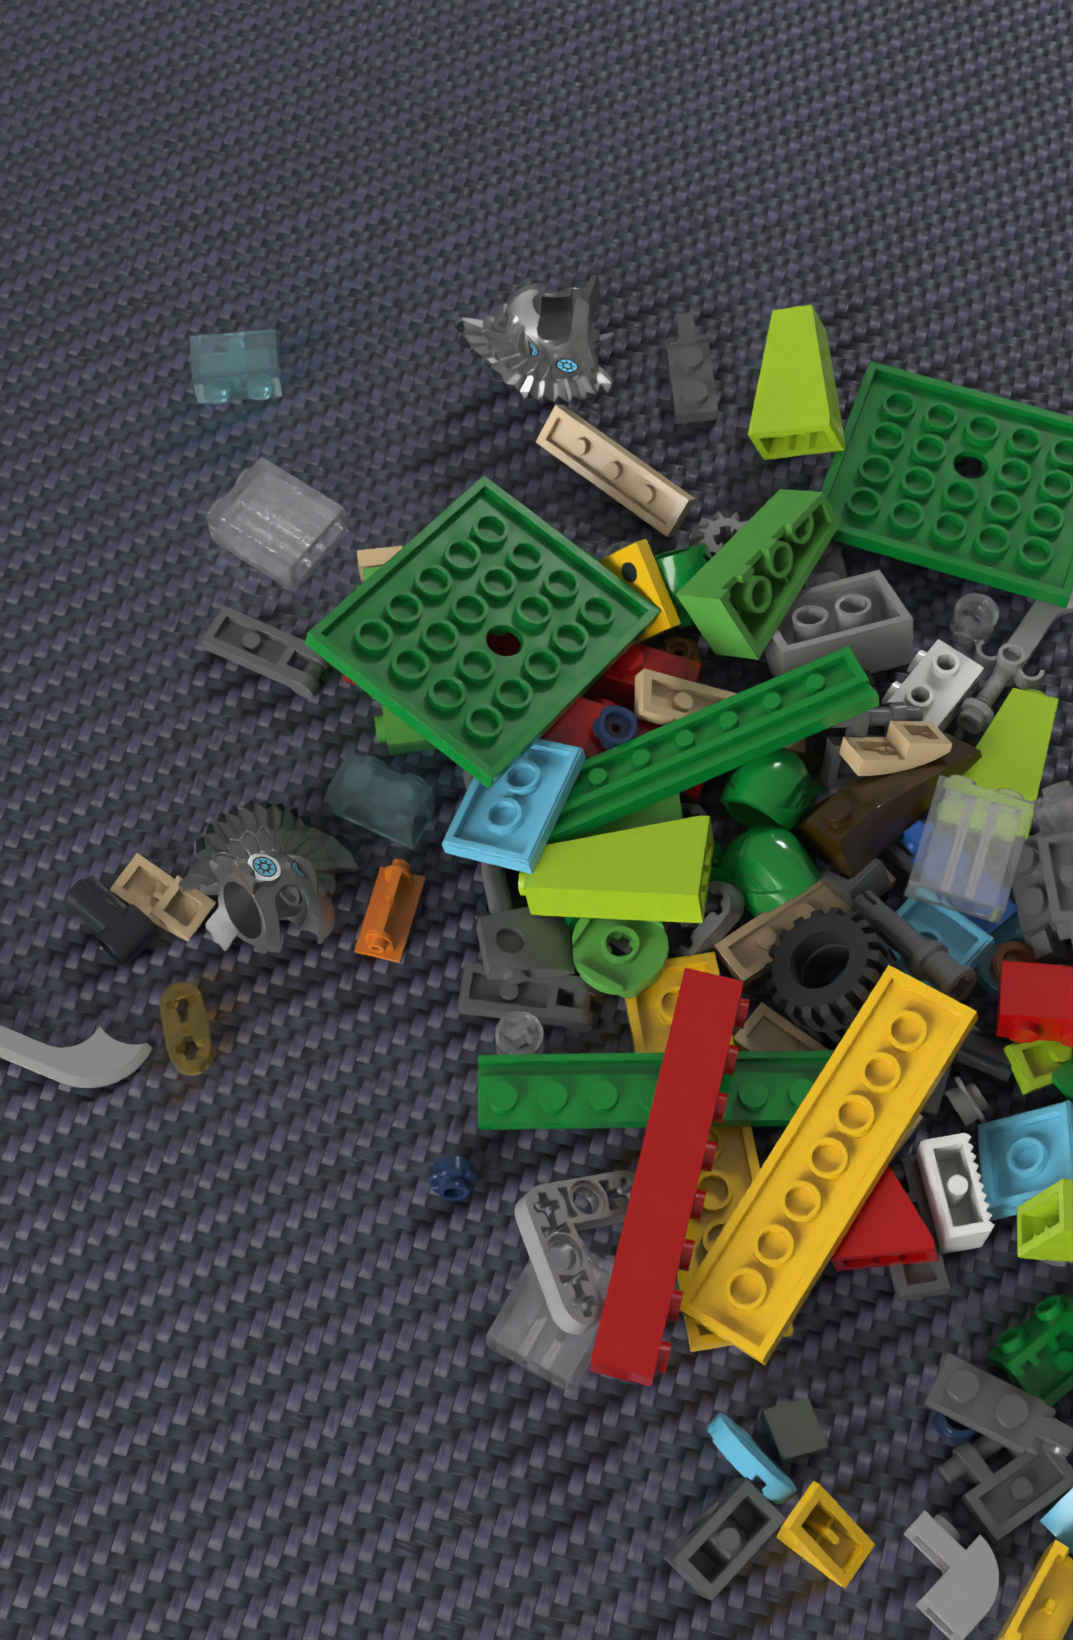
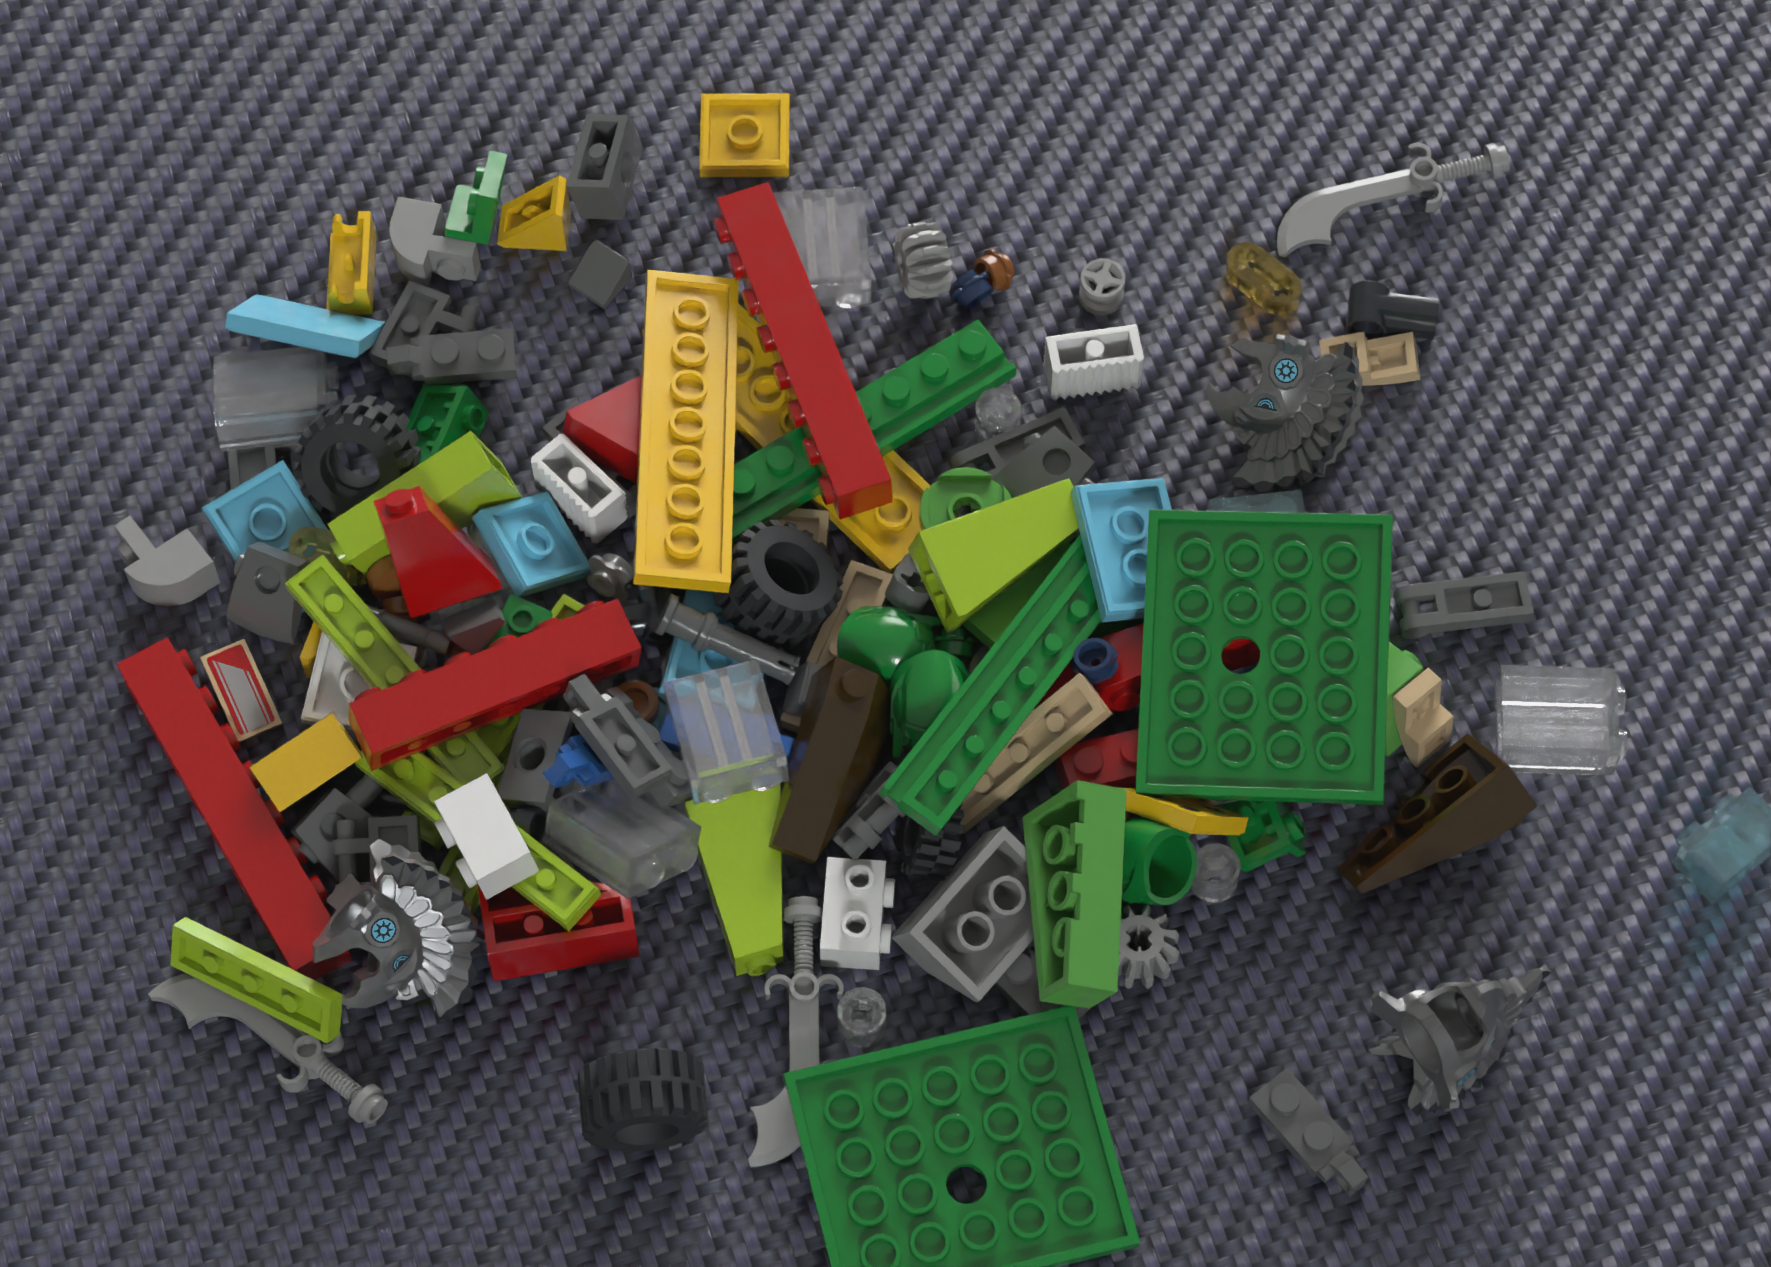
camera: 145 degrees right, 0 degrees up
(329, 1096) = (1094, 279): none -> light grey wheel
(390, 912) = (1177, 453): orange hinge -> none
(397, 501) = (1461, 804): none -> dark brown wedge
(402, 1024) = (1093, 361): none -> white brick
(415, 1189) = (998, 267): none -> dark orange plate
(481, 1224) = (922, 260): none -> light grey gear
(548, 1506) = (745, 135): none -> yellow tile
(565, 1221) = (860, 286): light grey beam -> none
(615, 470) = (1310, 967): tan plate -> none
(750, 1458) = (618, 218): medium azure tile -> none
(796, 389) = (1188, 1158): lime slope -> none
(882, 1578) = (476, 207): none -> green bracket
(903, 748) = (844, 794): tan slope -> none

